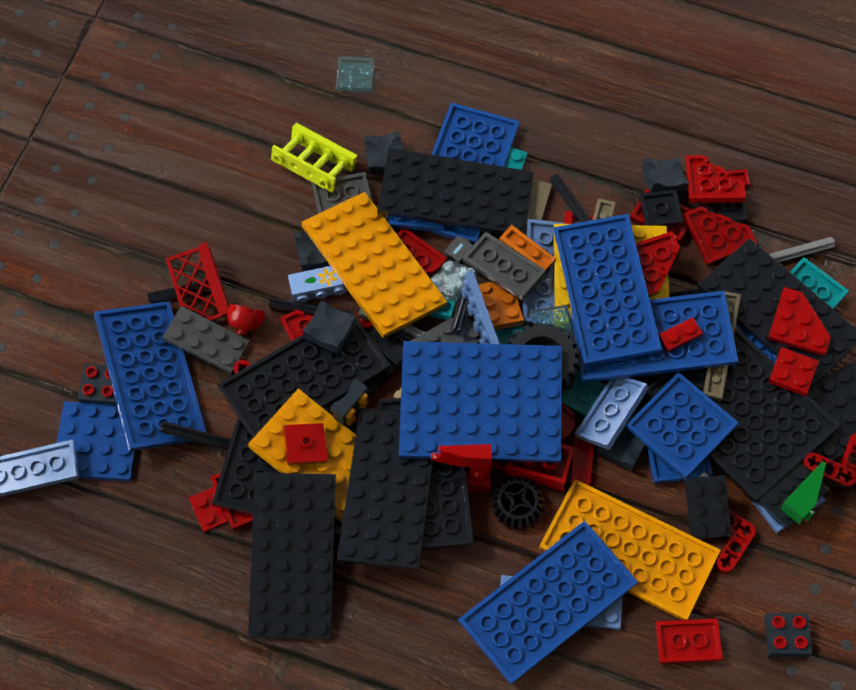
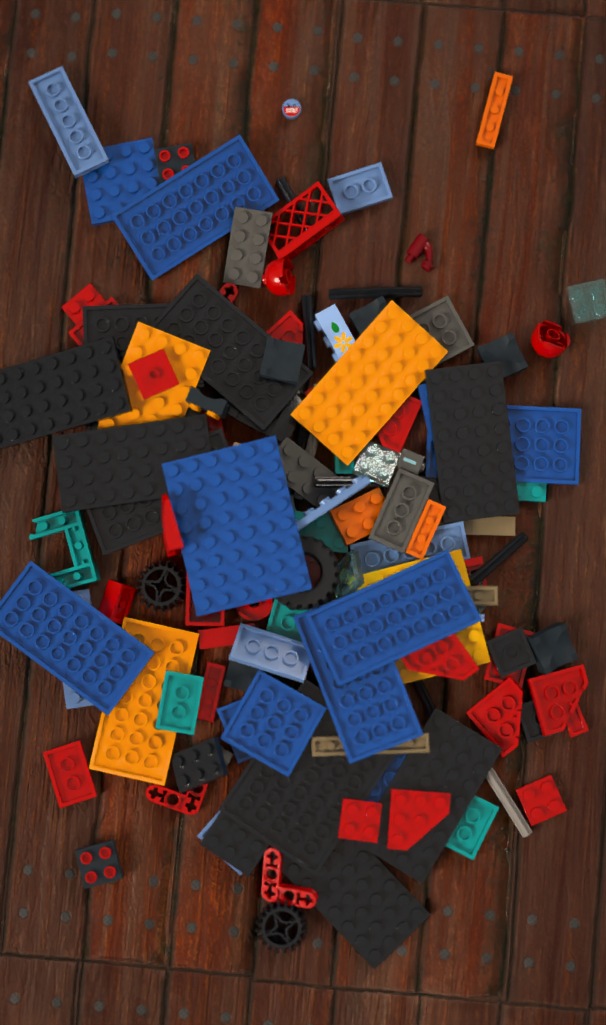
camera: 75 degrees right, 20 degrees up
(84, 271) = (291, 109): none -> tile
(153, 105) = (494, 110): none -> orange plate
(183, 229) = (360, 188): none -> medium blue plate
(195, 435) = (145, 269): black axle -> none
(255, 194) = (419, 244): none -> dark red plant
(287, 244) = (375, 292): none -> black axle
(319, 145) = (492, 286): neon yellow fence -> none
(381, 111) = (549, 339): none -> red cylinder
(433, 572) = (73, 523): none -> teal wedge
(519, 550) = (117, 601): none -> red panel
(635, 486) = (211, 691): none -> red tile
(640, 510) = (179, 702): none -> teal plate
(680, 335) = (362, 701): red plate -> none
(802, 224) = (540, 800): none -> red plate
(804, 498) = (228, 855): green slope -> none

